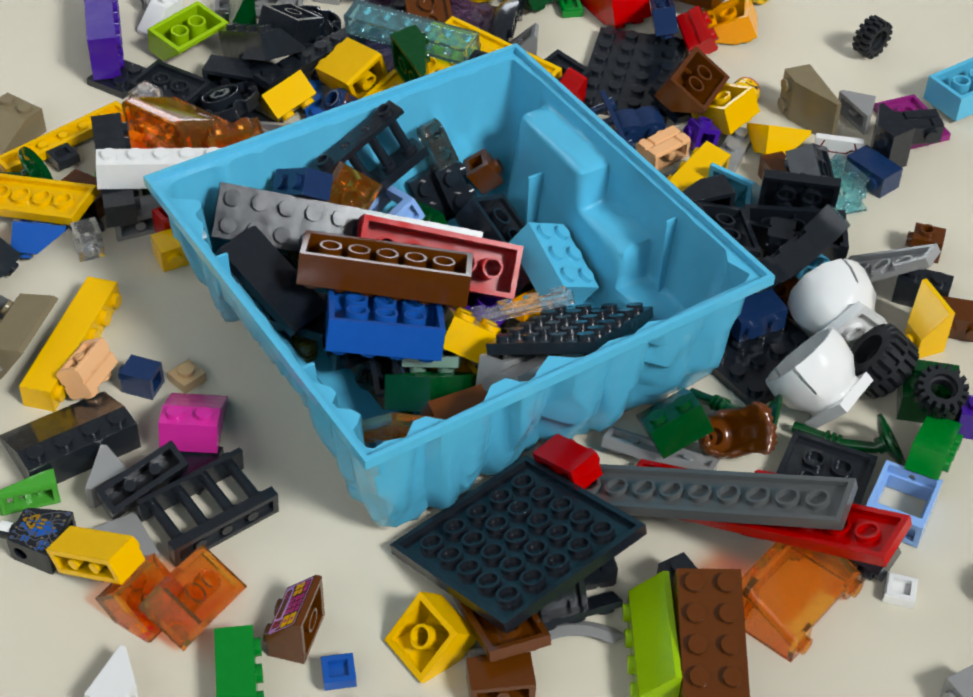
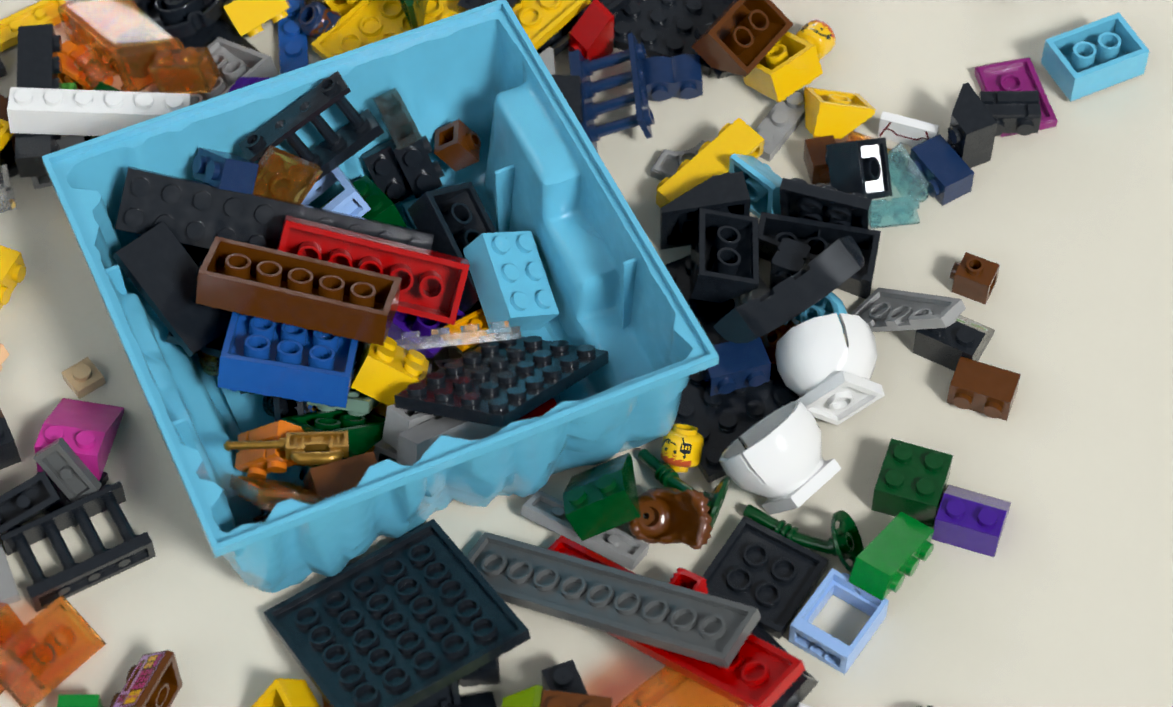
camera: 10 degrees right, 10 degrees up
(141, 377) = (32, 376): dark blue brick -> none
(191, 440) = (67, 470): none -> dark grey plate
(381, 395) = (264, 461): none -> orange brick
(413, 388) = (303, 447): none -> pearl gold piece
(569, 460) = (475, 534): red brick -> none
(664, 147) = (692, 115): light nougat brick -> none
(700, 131) = (743, 100): dark purple brick -> none
(727, 381) = (682, 447): none -> yellow head
(808, 100) = (886, 63): dark tan slope -> none
(857, 109) = (949, 74): light grey slope -> none
(886, 357) = (862, 440): black tyre -> none
(929, 321) = (935, 393): yellow slope -> none
(946, 378) = (921, 473): black tyre -> none

